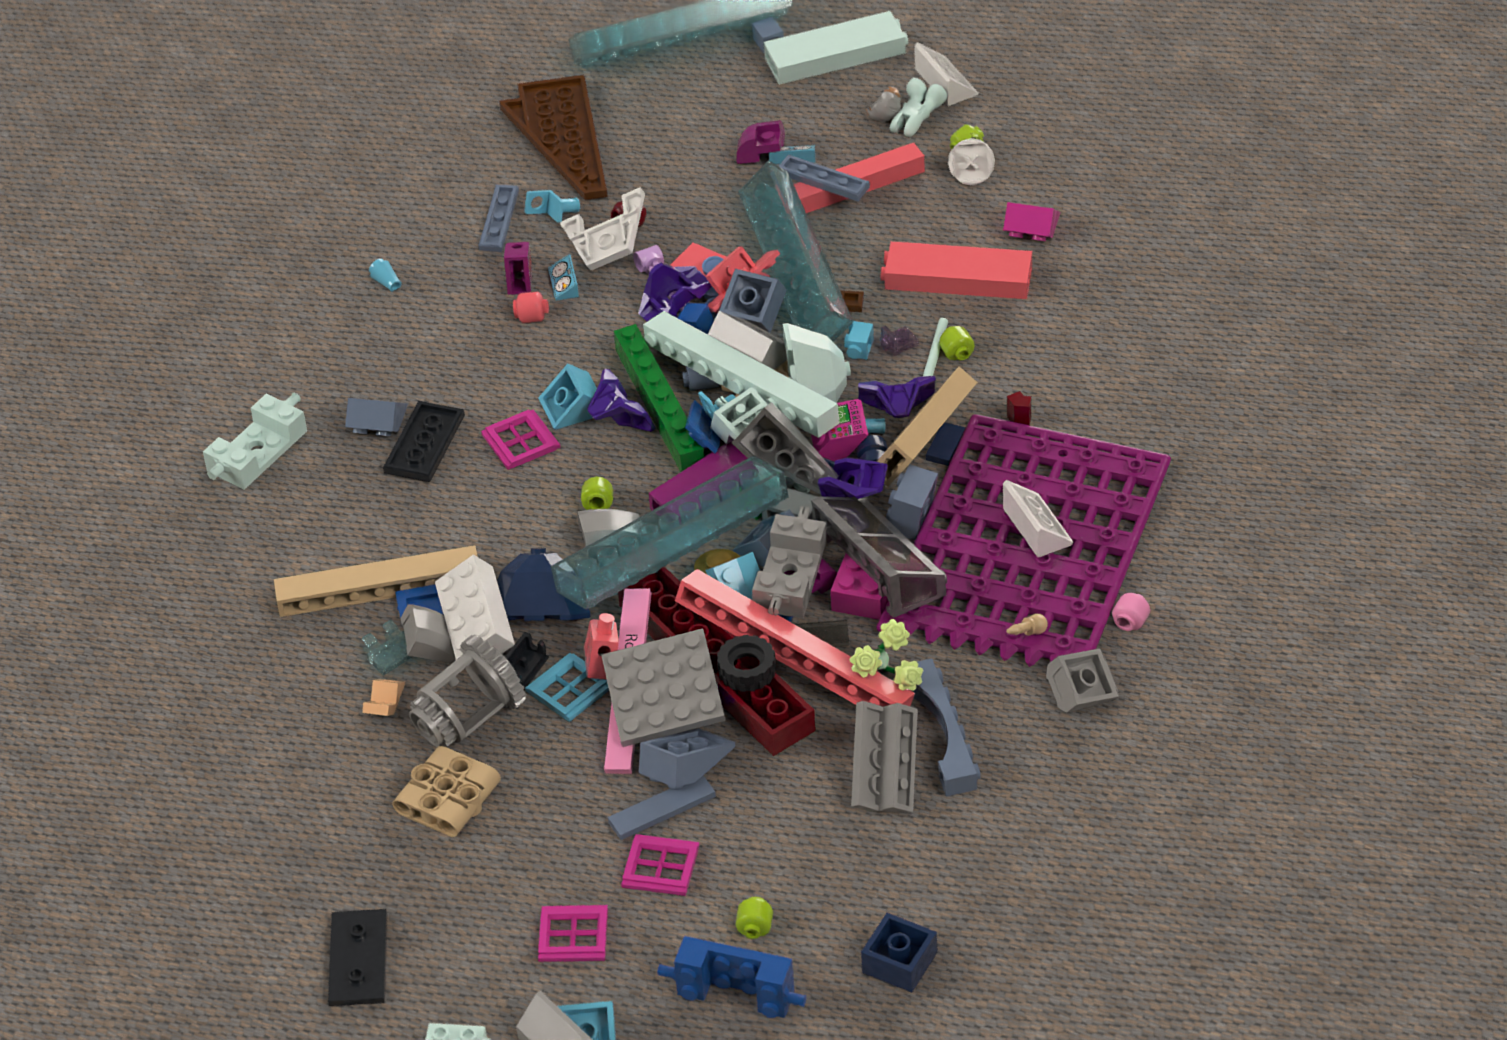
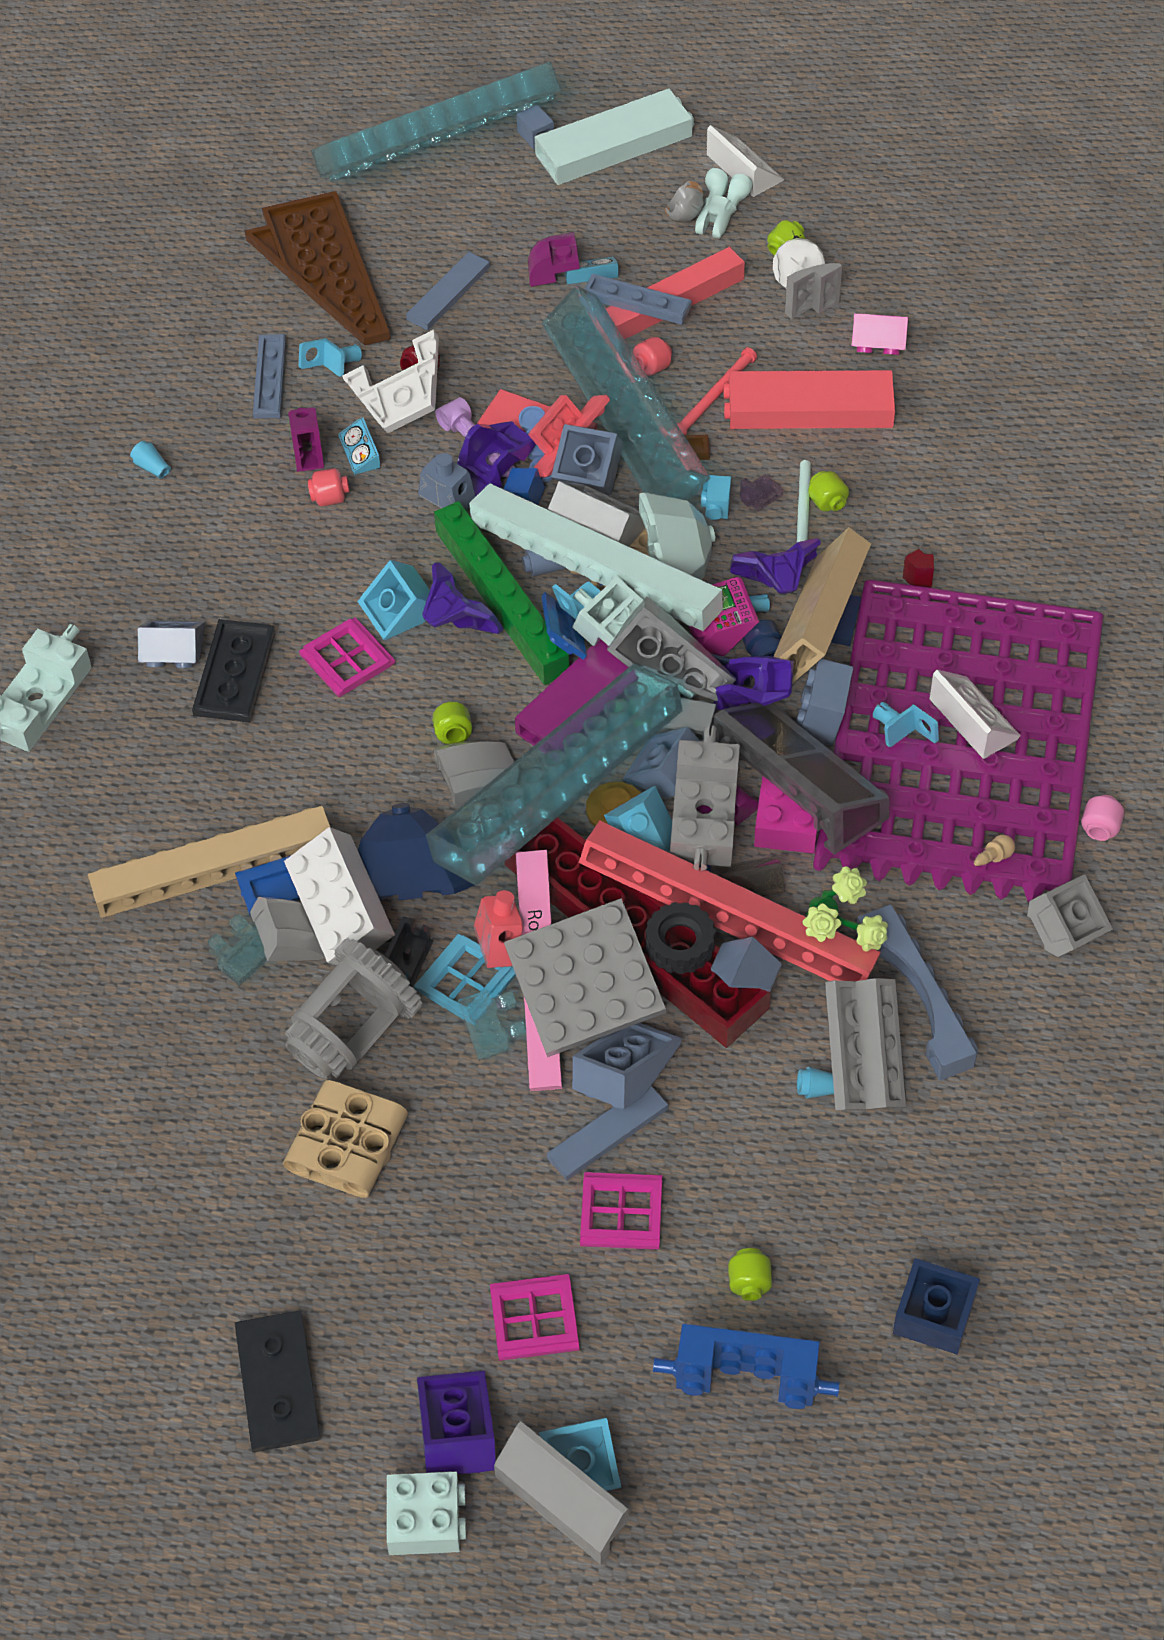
camera: 10 degrees left, 10 degrees up
(384, 697) = (246, 1017): light nougat slope -> none
(494, 998) = (456, 1423): none -> dark purple slope
(575, 719) = (483, 1024): none -> clear light blue plate
(628, 308) = (446, 483): none -> sand blue torso
(665, 161) = (447, 291): none -> sand blue tile
(799, 687) = (746, 964): none -> sand blue slope
(828, 225) = (653, 355): none -> coral head
(839, 786) = (814, 1082): none -> medium azure cone
(912, 232) = (747, 356): none -> coral bar
(973, 523) = (900, 725): none -> medium azure bracket
(978, 181) = (813, 288): none -> light grey slope

